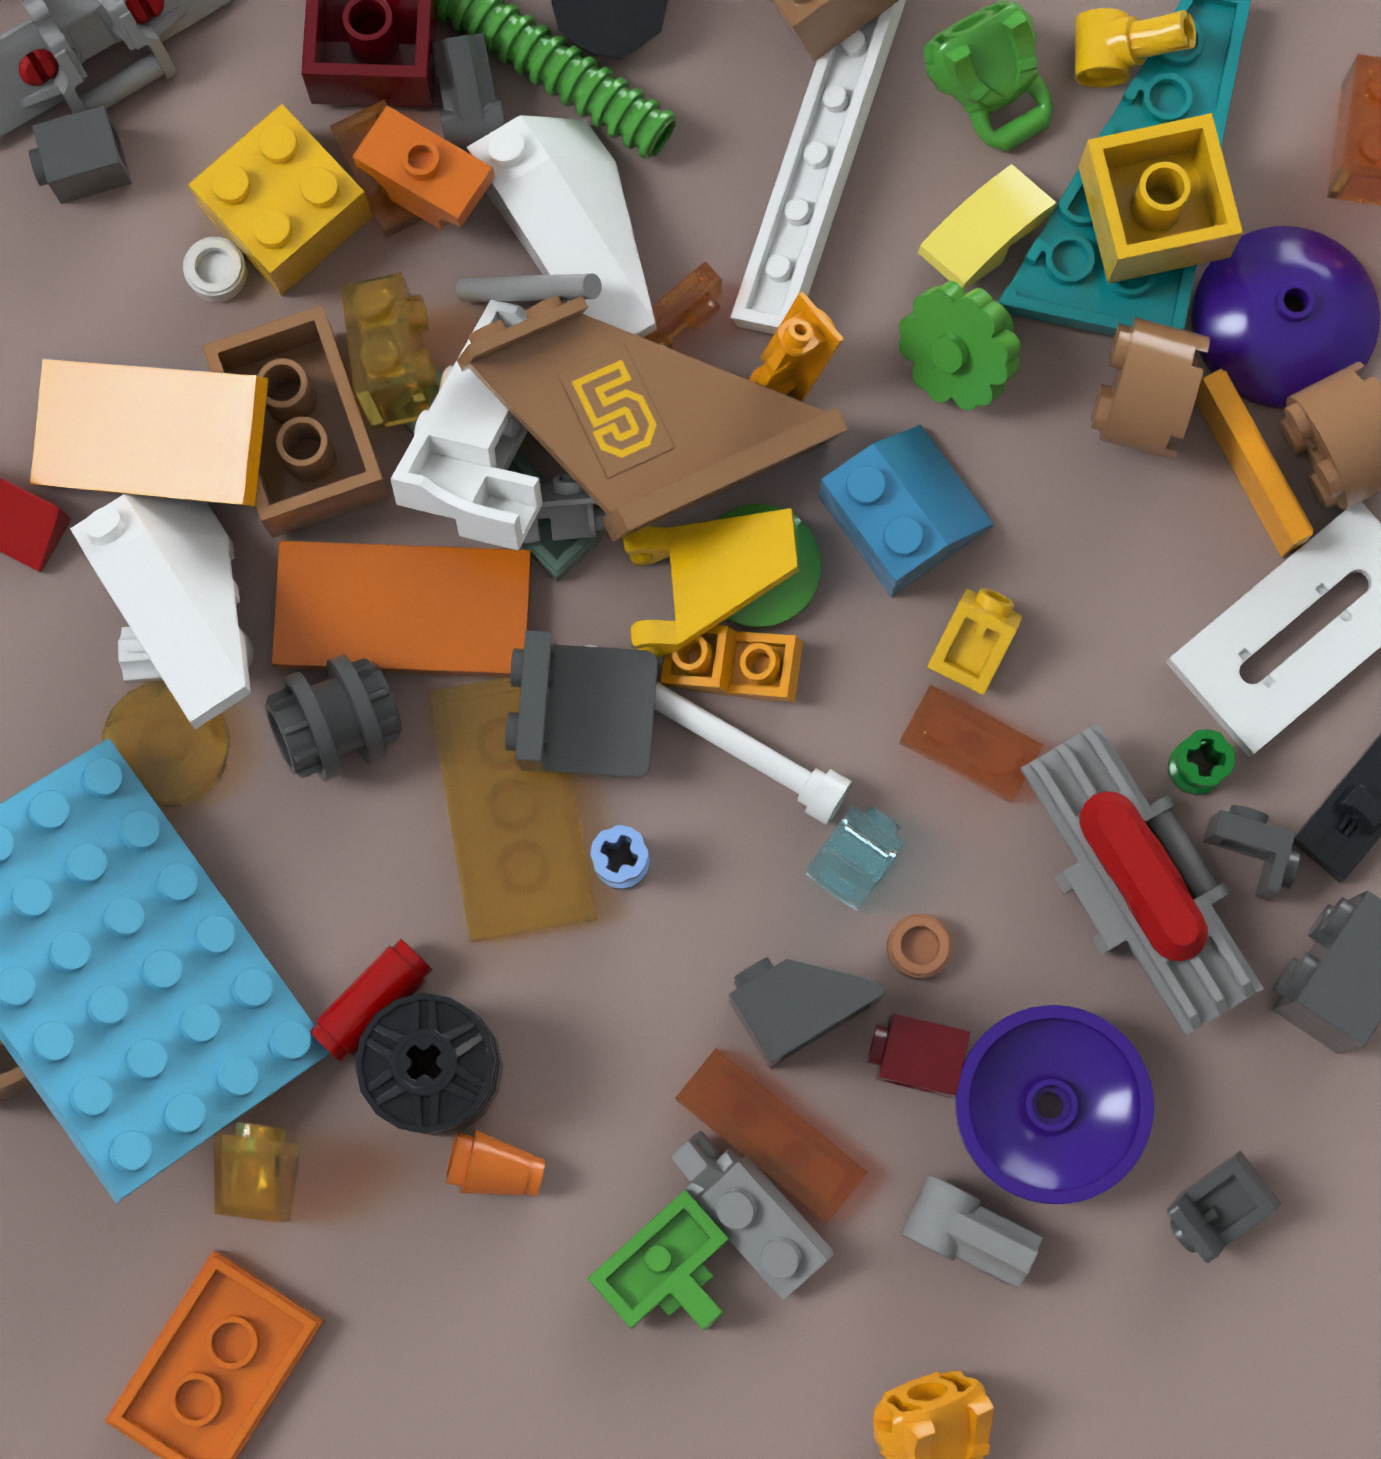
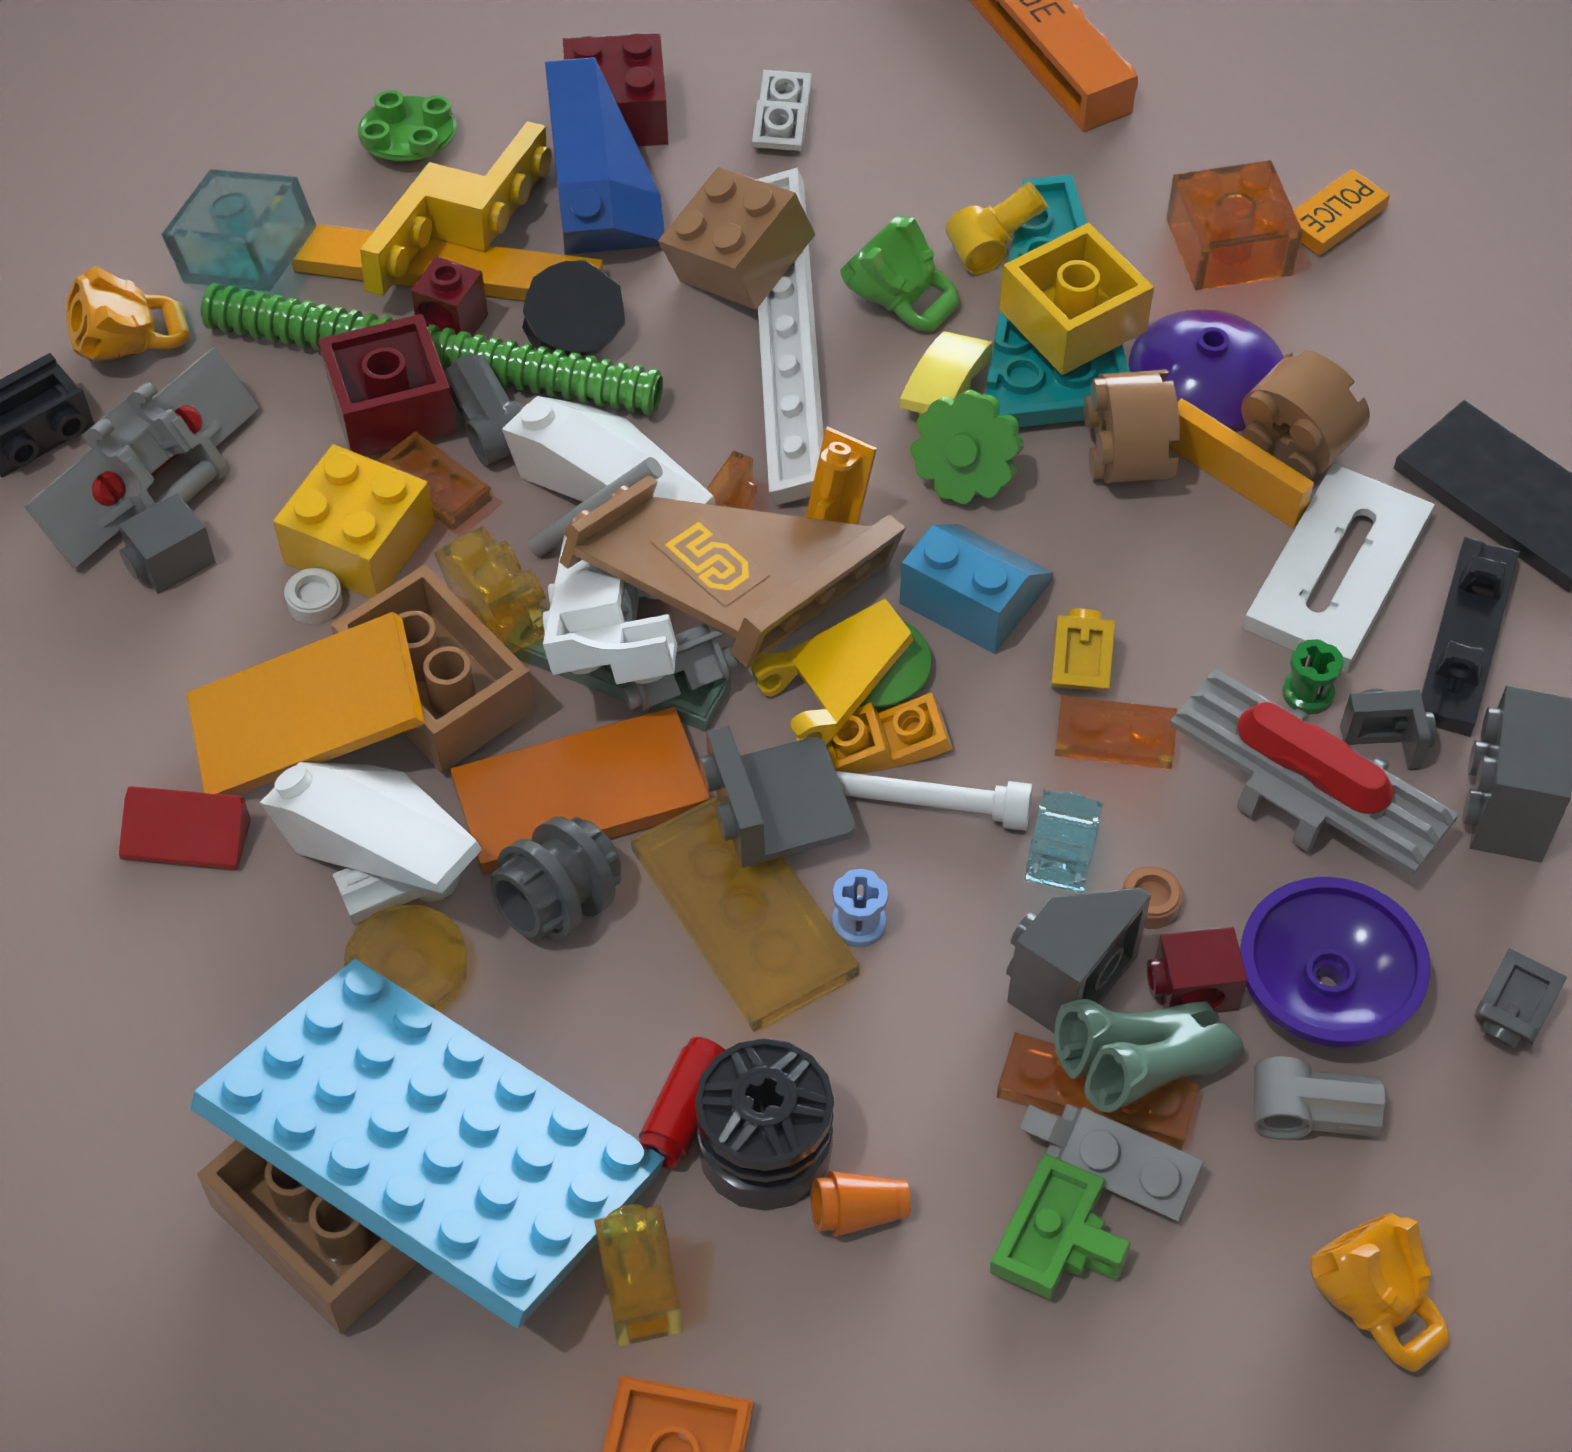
camera: 25 degrees left, 25 degrees down
(423, 170) = (474, 450): orange brick -> none
(779, 1100) = (1140, 1051): none -> sand green piece

